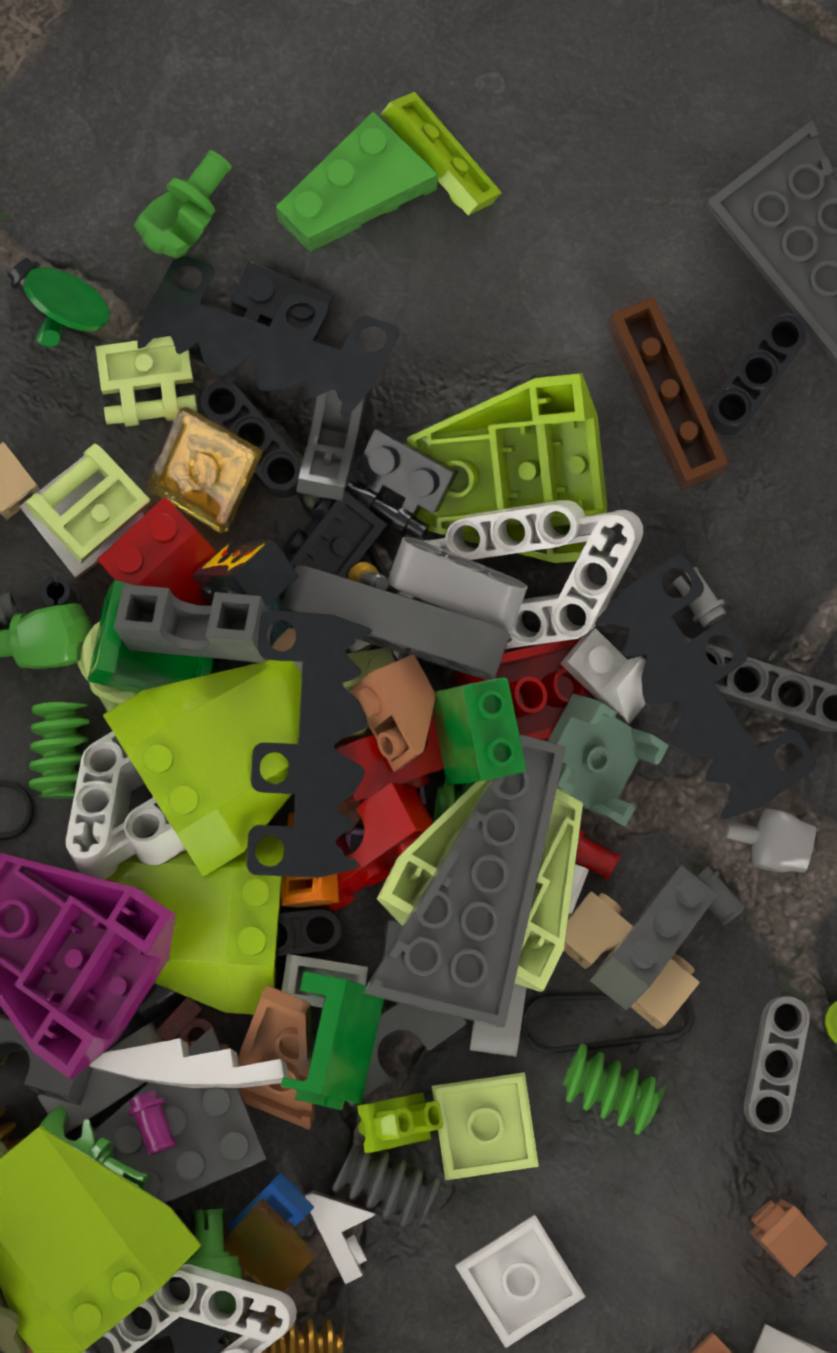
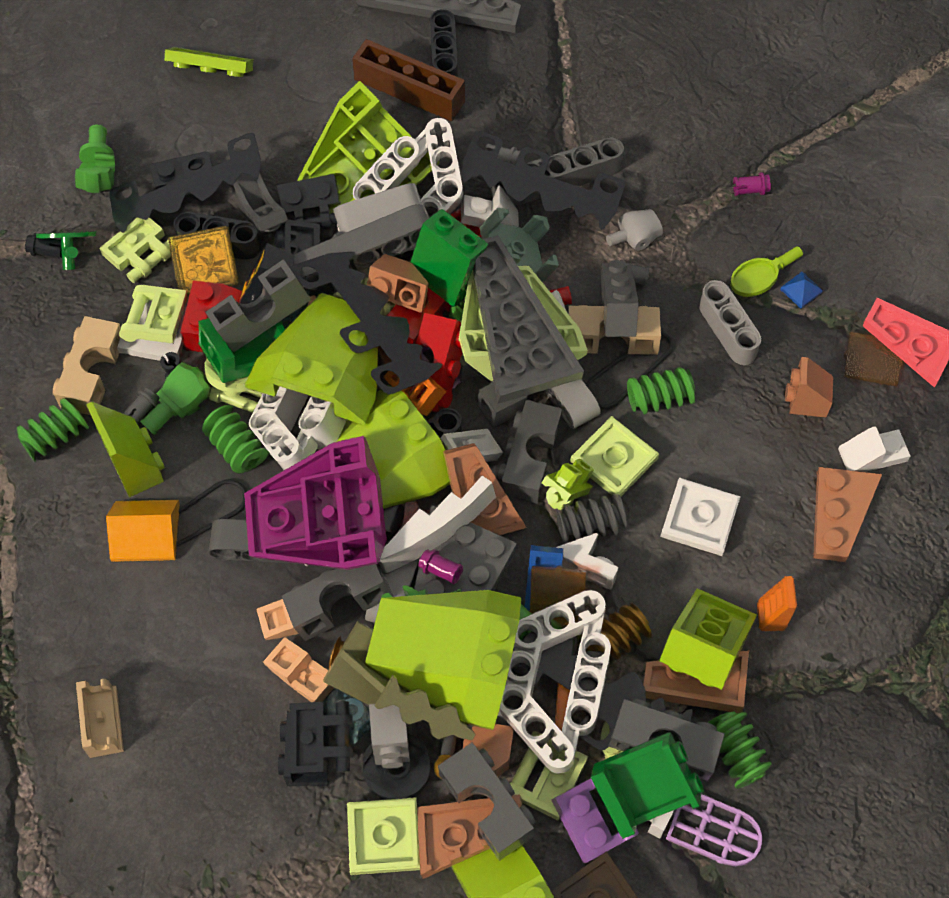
camera: 35 degrees left, 20 degrees down
(342, 1042) = (490, 430): green panel -> none
(356, 182) = (177, 95): bright green wedge -> none

